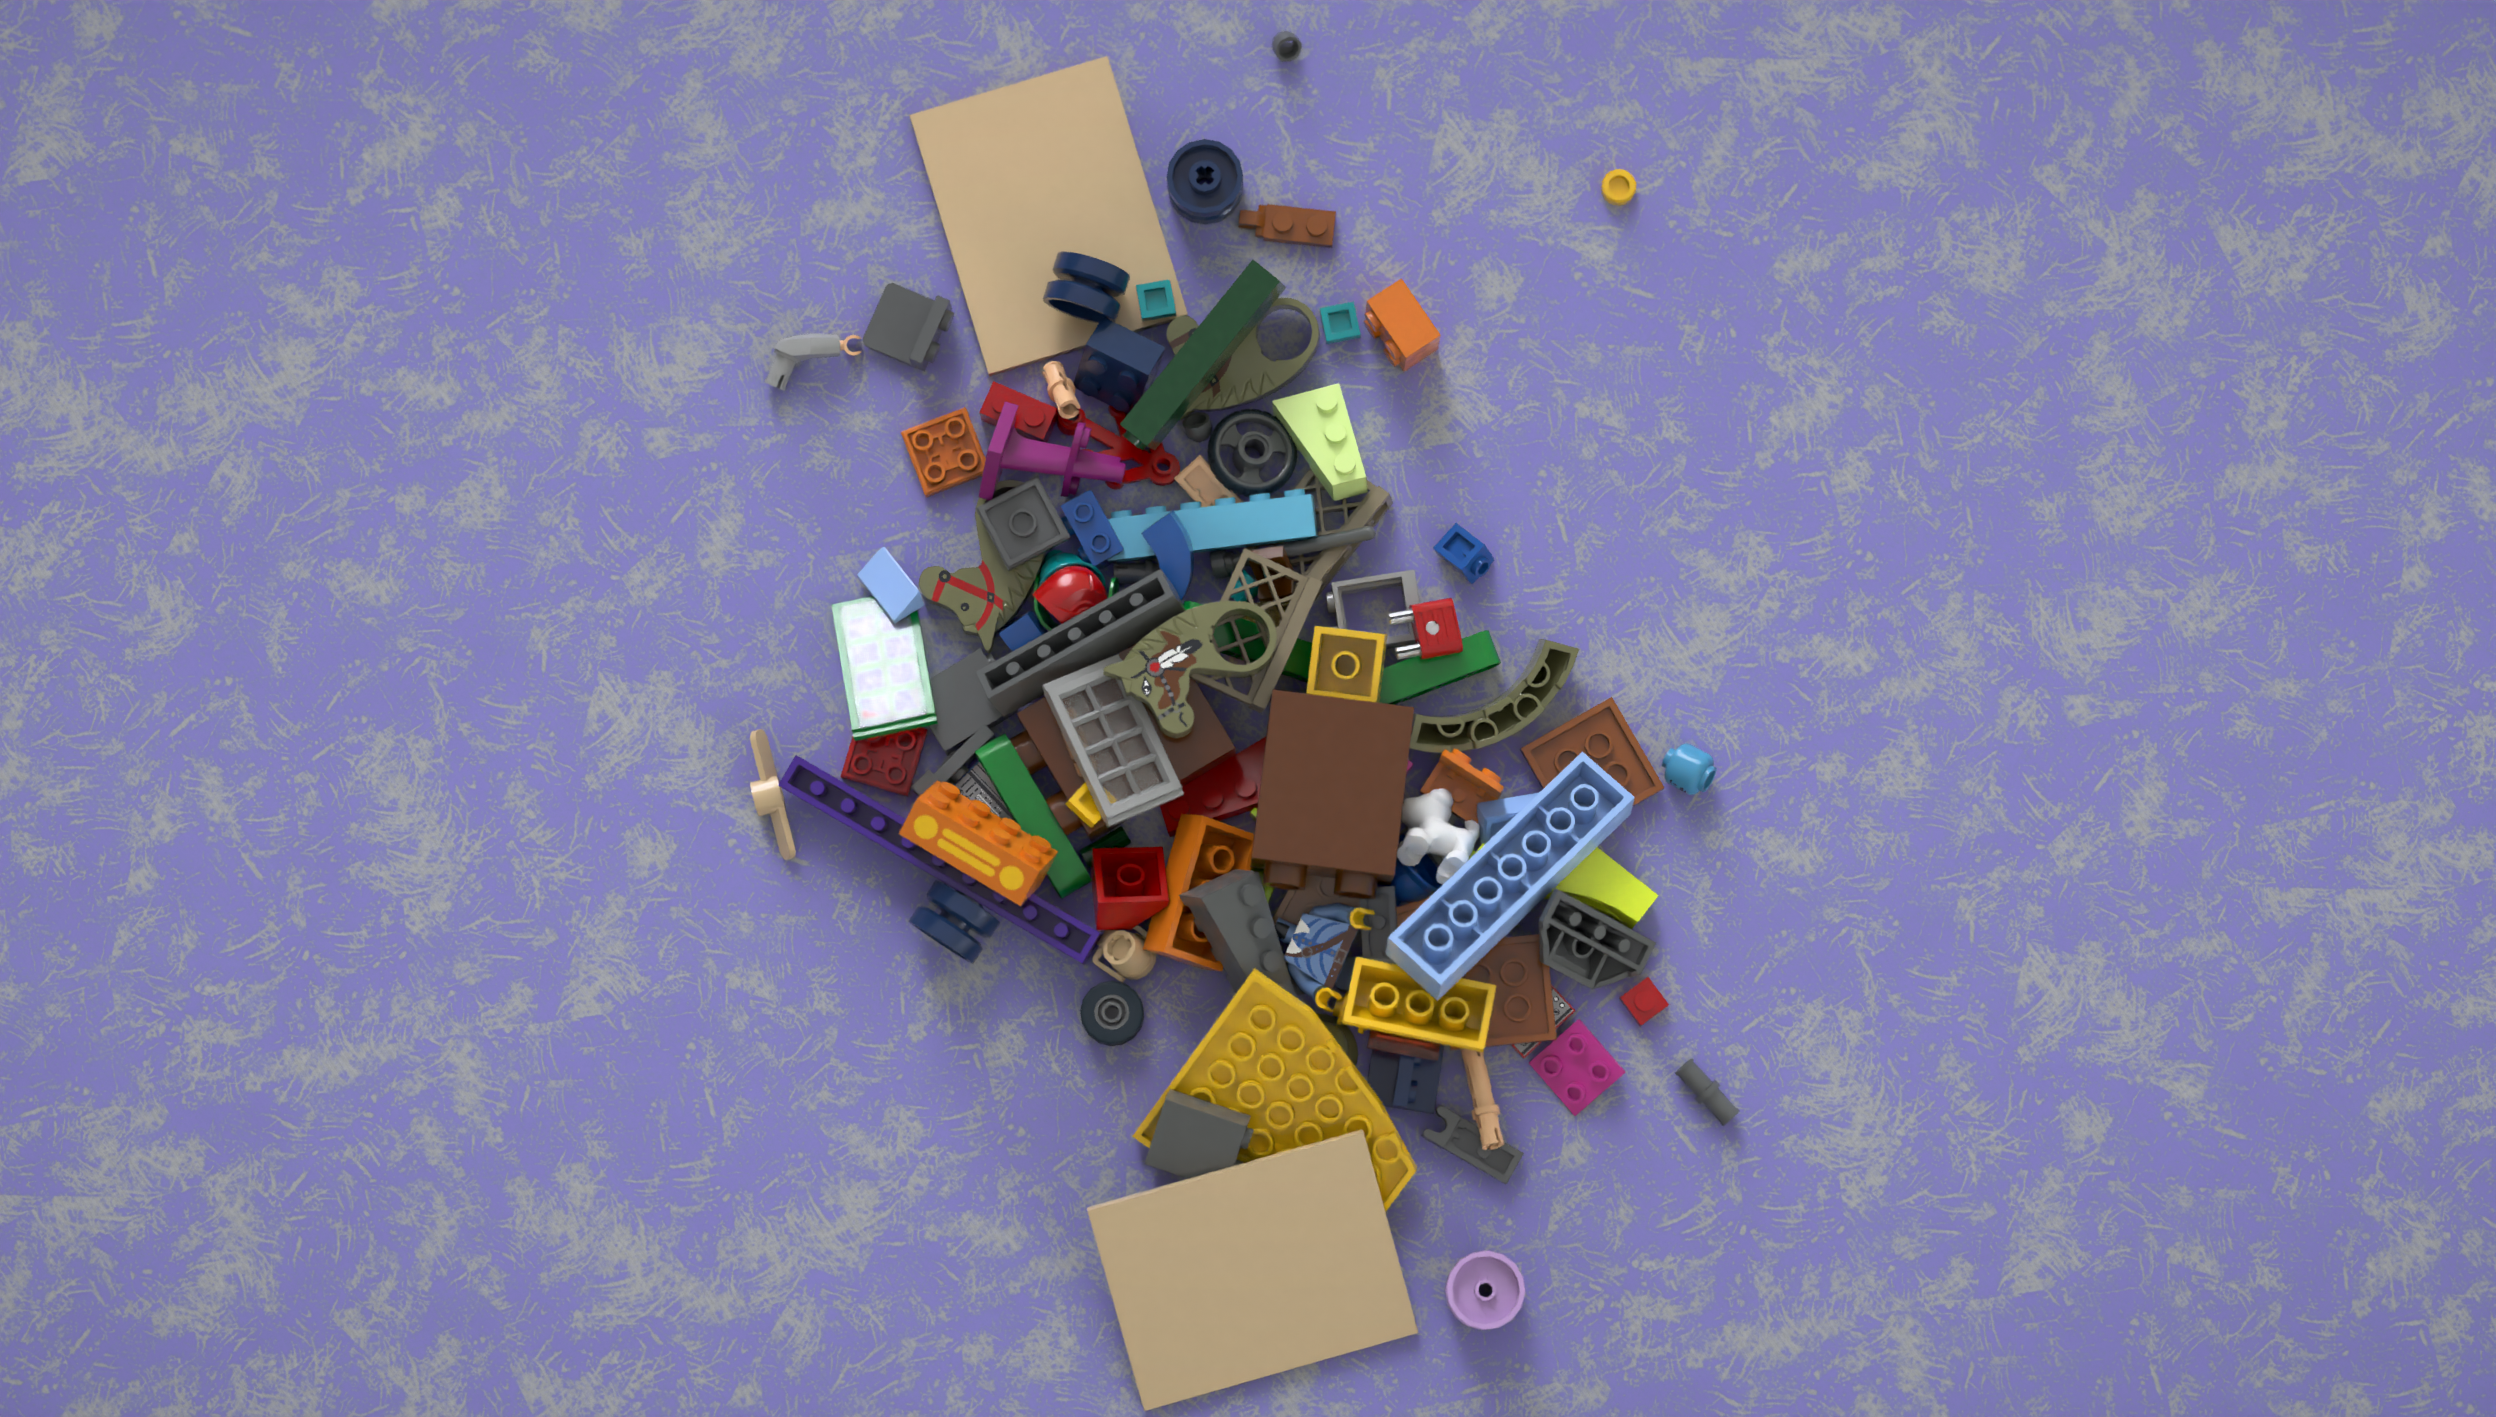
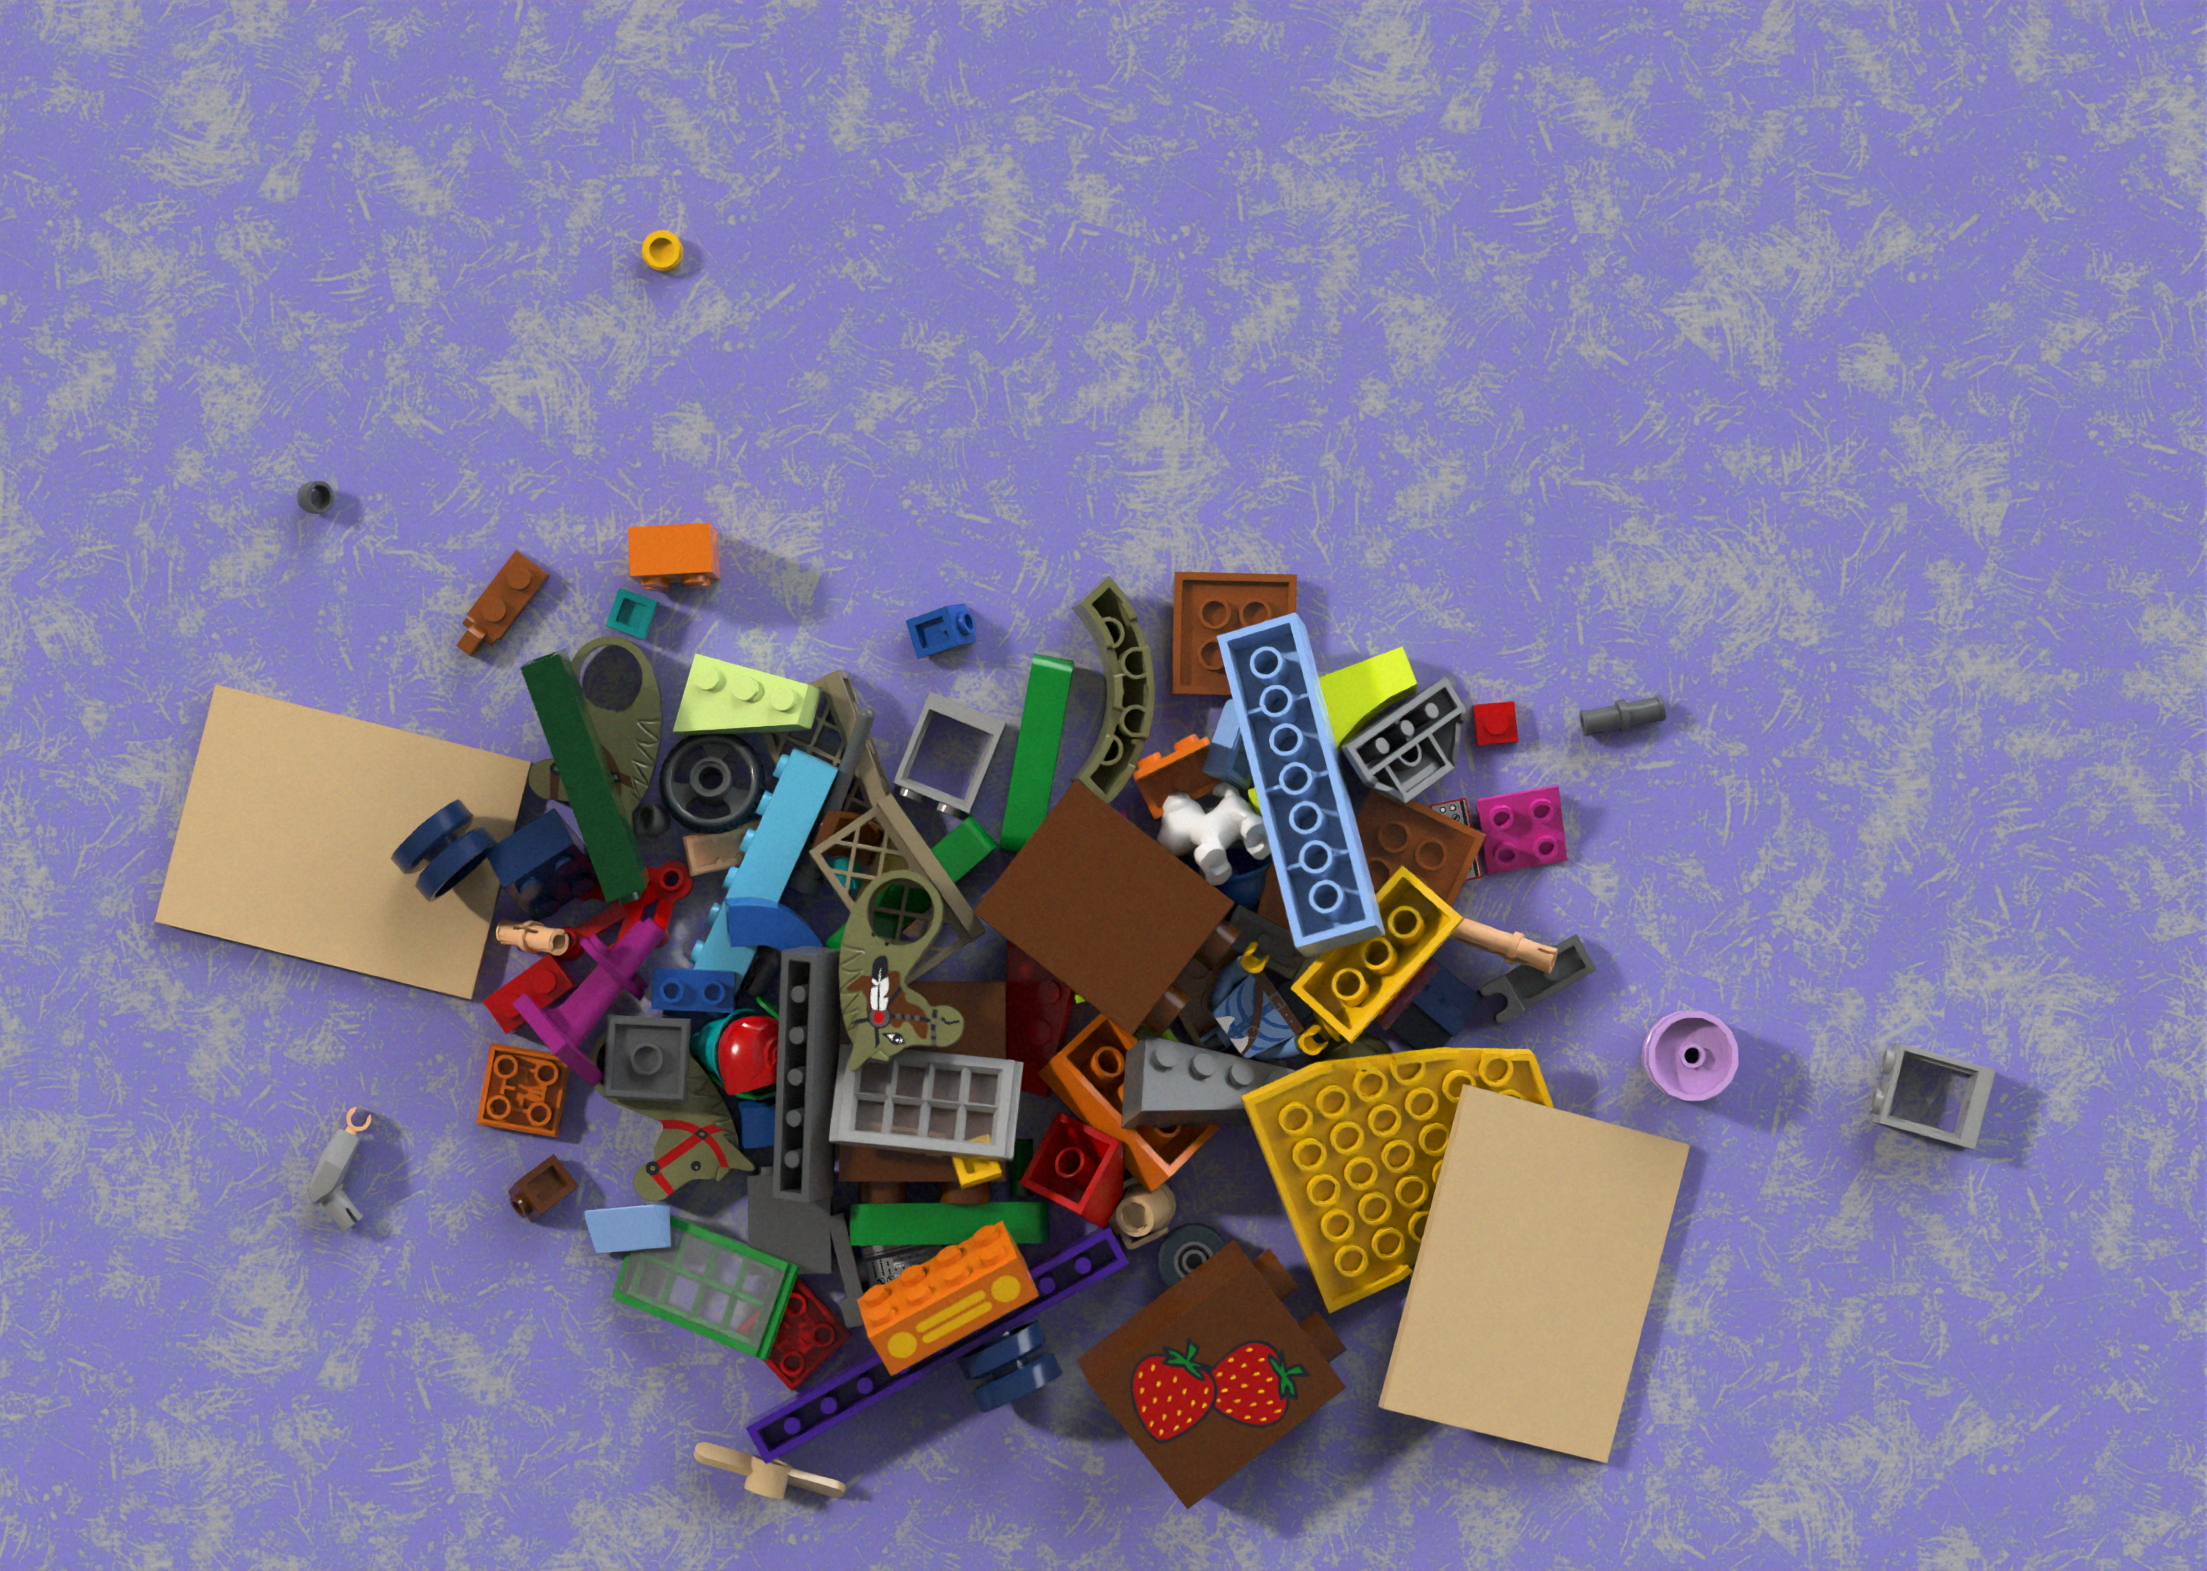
camera: 55 degrees left, 5 degrees up
(880, 506) = (541, 1189): none -> reddish brown bracket
(908, 326) = (372, 1051): dark grey bracket -> none
(1041, 1073) = (1215, 1370): none -> reddish brown brick
(1156, 300) = (498, 786): teal plate -> none
(1197, 1136) = (1372, 1251): dark grey brick -> none
(1202, 161) = (382, 658): dark blue wheel -> none
(1346, 664) = (988, 819): yellow brick -> none
(1433, 627) = (1002, 709): red piece -> none
(1689, 769) = (1292, 538): dark azure head -> none

